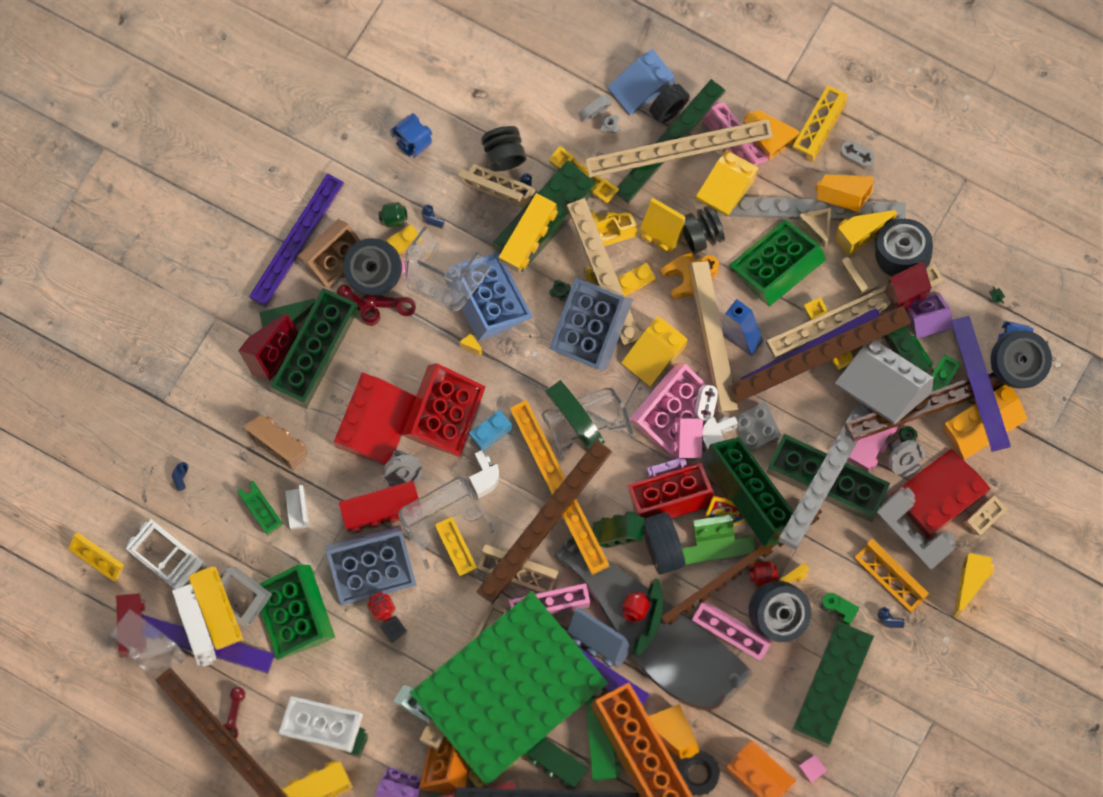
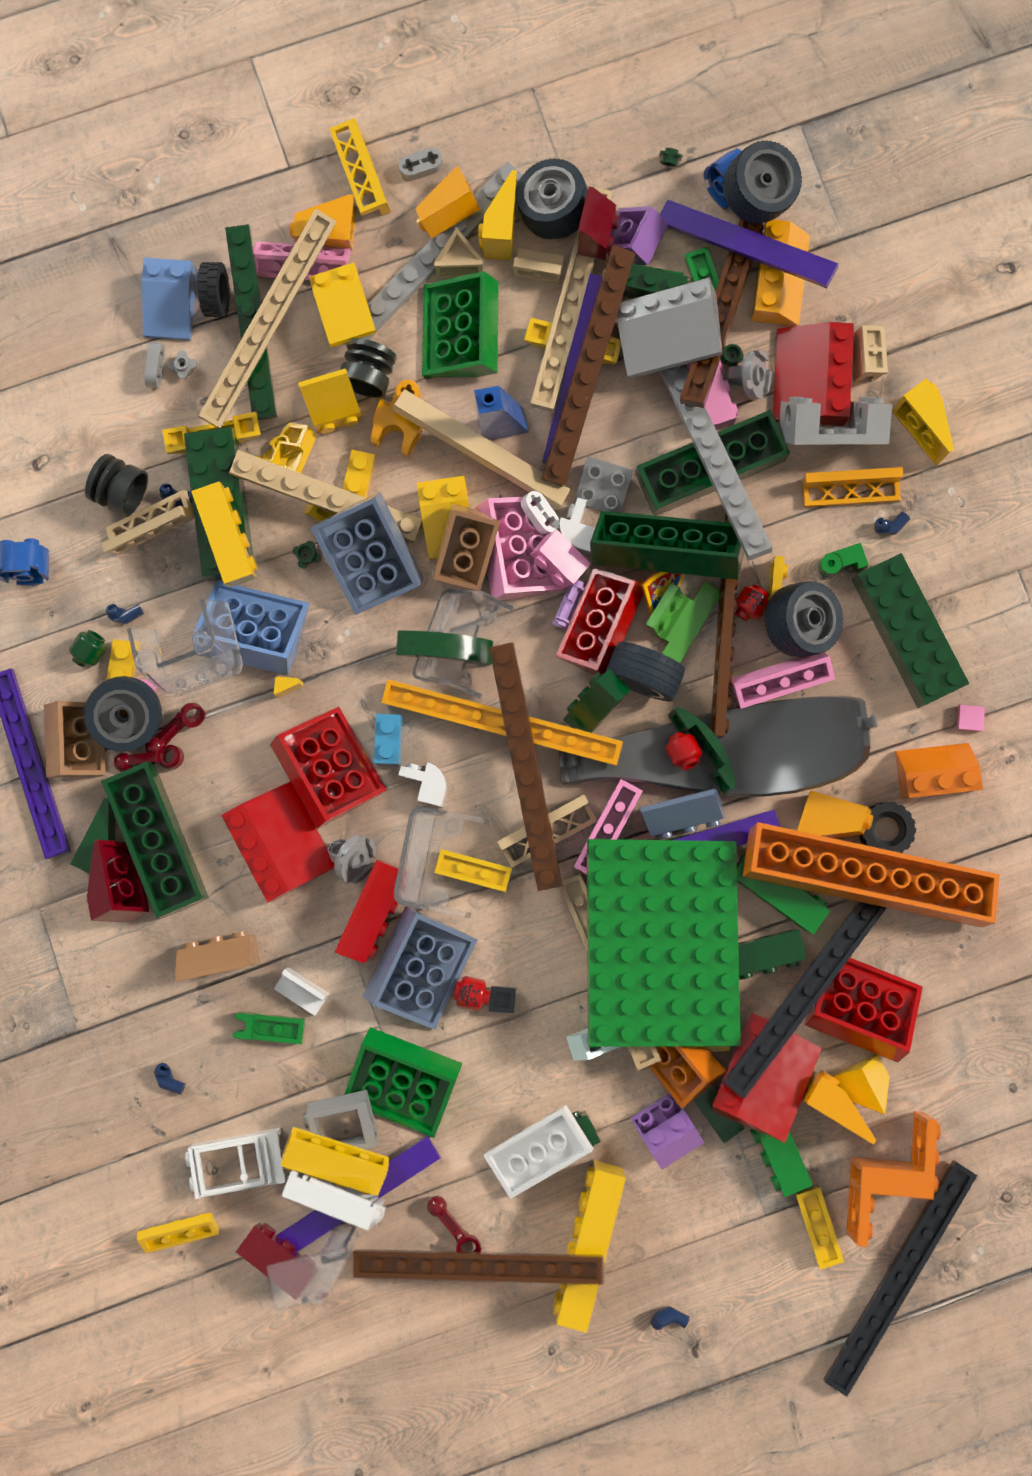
camera: 45 degrees left, 10 degrees up
(644, 376) = (465, 547): none -> medium nougat slope

